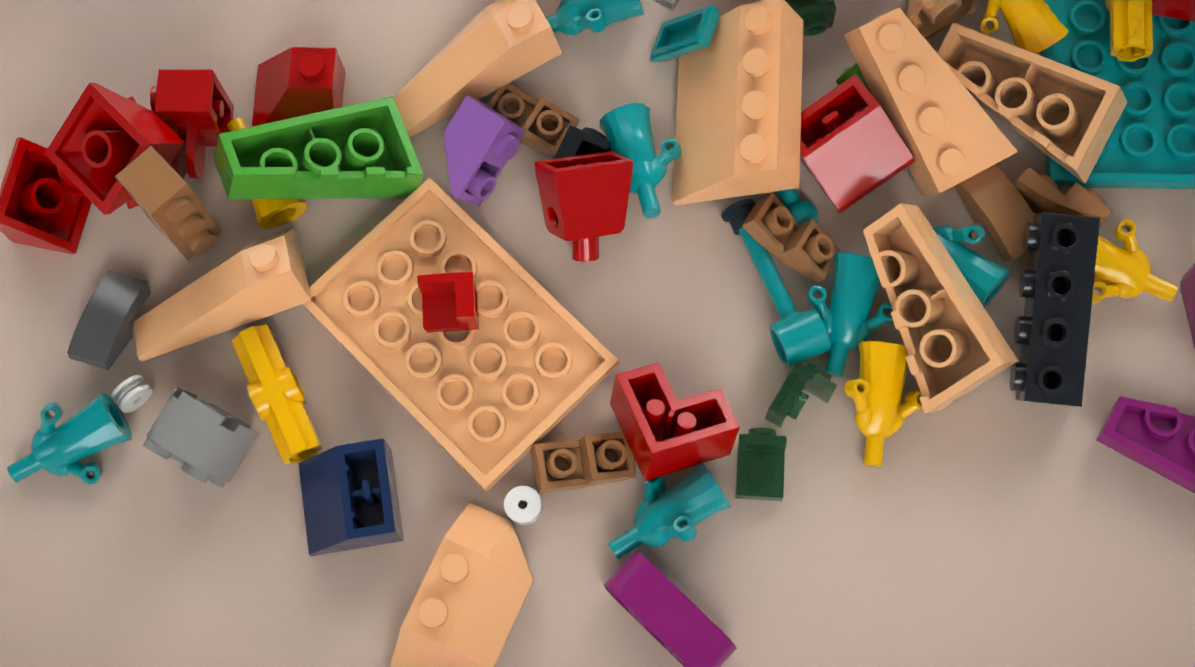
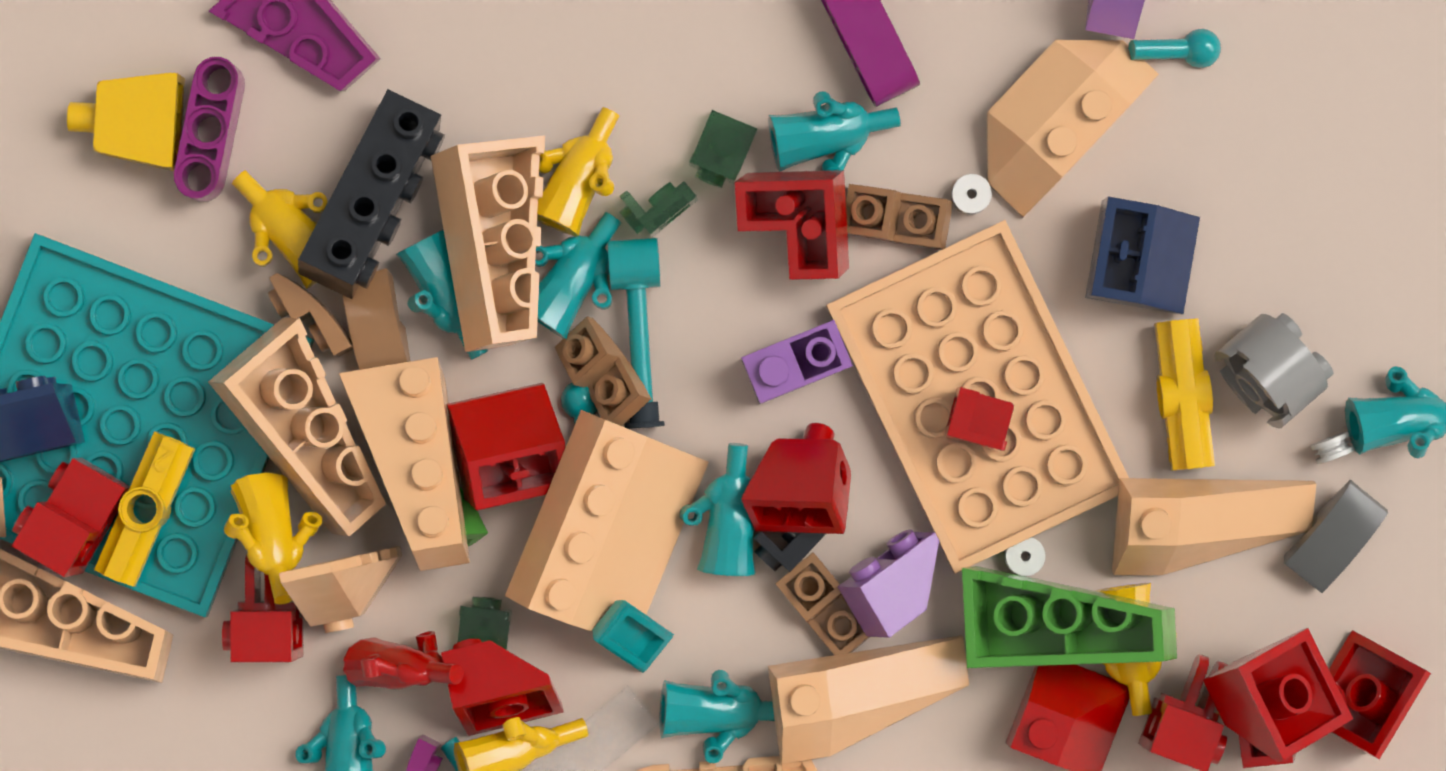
camera: 170 degrees left, 15 degrees up
(169, 203) = (1236, 620): medium nougat arch -> none
(368, 210) = (1032, 564): none -> white piece
(629, 298) = (796, 362): none -> medium lavender slope

